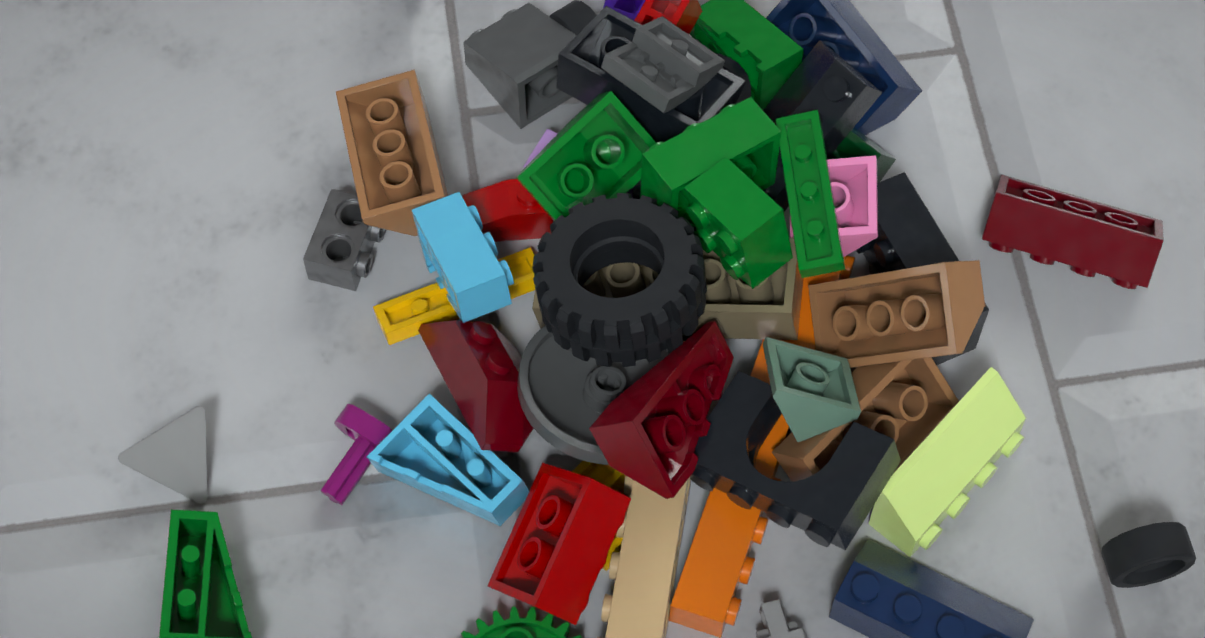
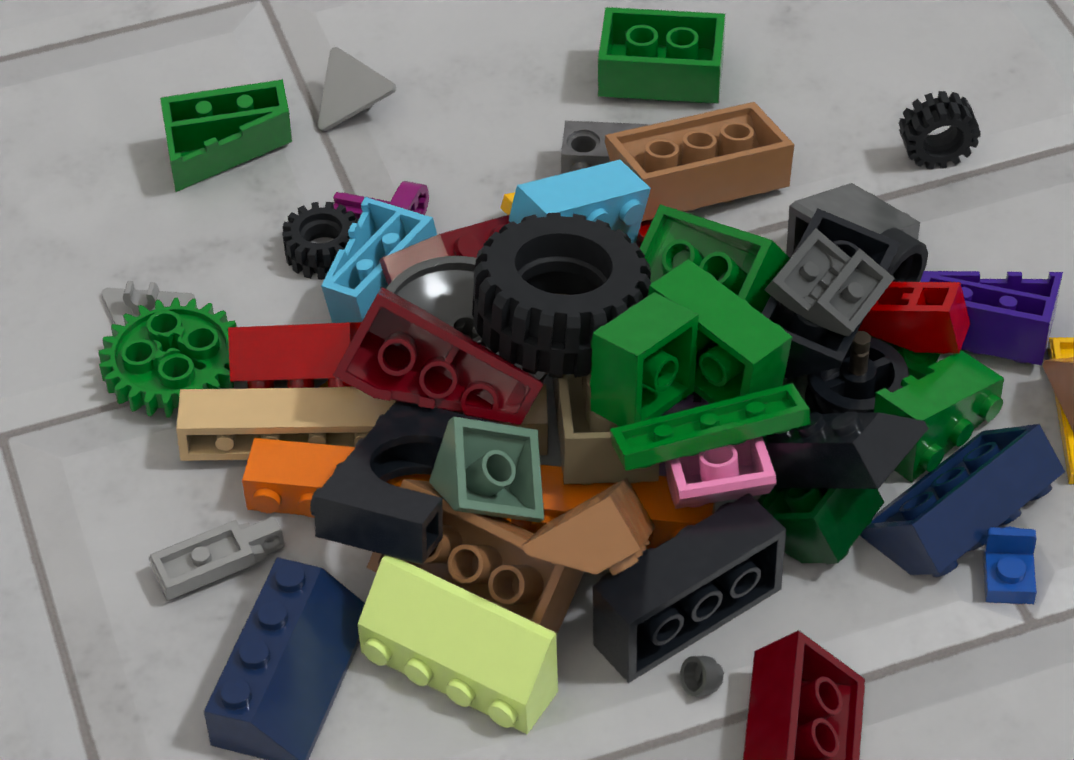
camera: 80 degrees right, 15 degrees down
(225, 159) = (661, 55): none -> green brick
(381, 493) = (311, 225): none -> black tyre
(911, 46) = (1009, 565): none -> blue bracket
(997, 285) = (701, 675): none -> dark grey hinge

